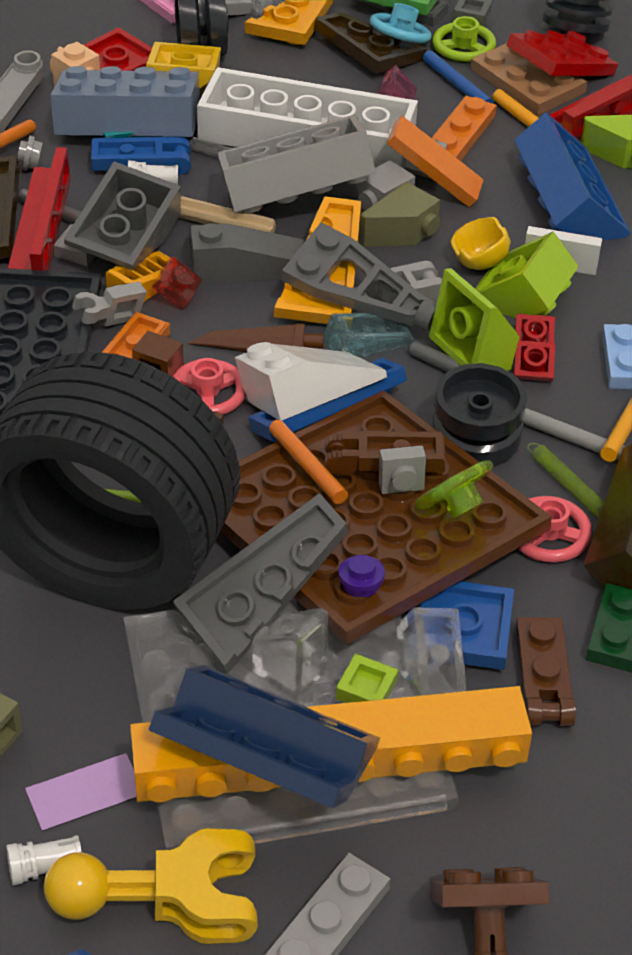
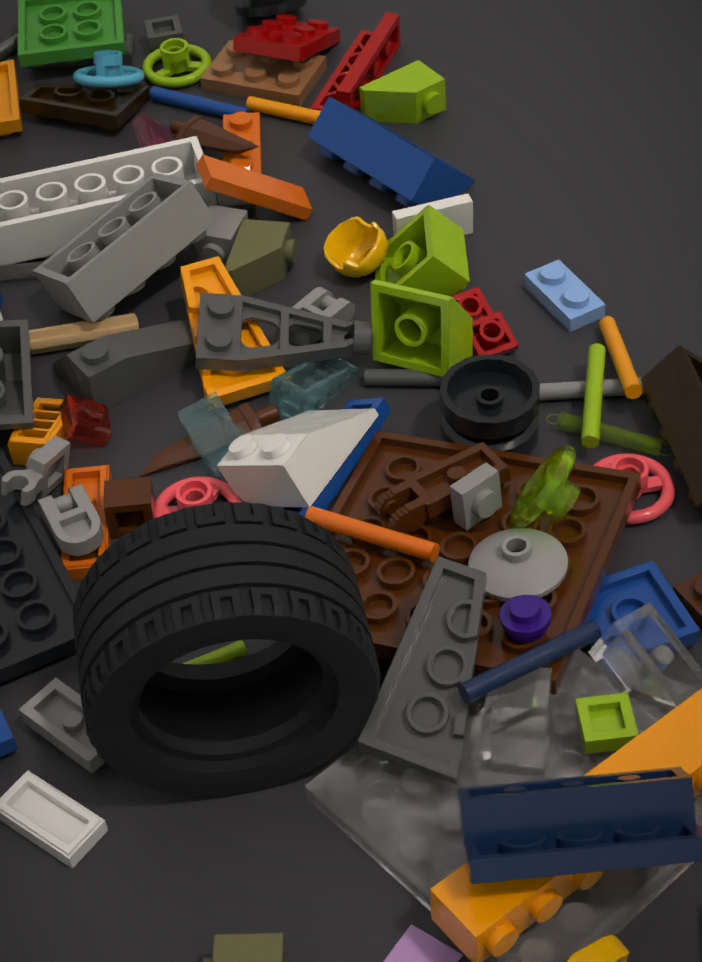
camera: 25 degrees left, 0 degrees up
(109, 339) = (73, 521): none -> light grey plate
(259, 324) = (209, 430): none -> clear light blue slope
(338, 606) = (529, 661): none -> dark blue bar
(396, 536) = (520, 563): none -> light grey dish
(438, 106) = (210, 136): none -> reddish brown bar
(574, 443) = (593, 396): none -> lime bar

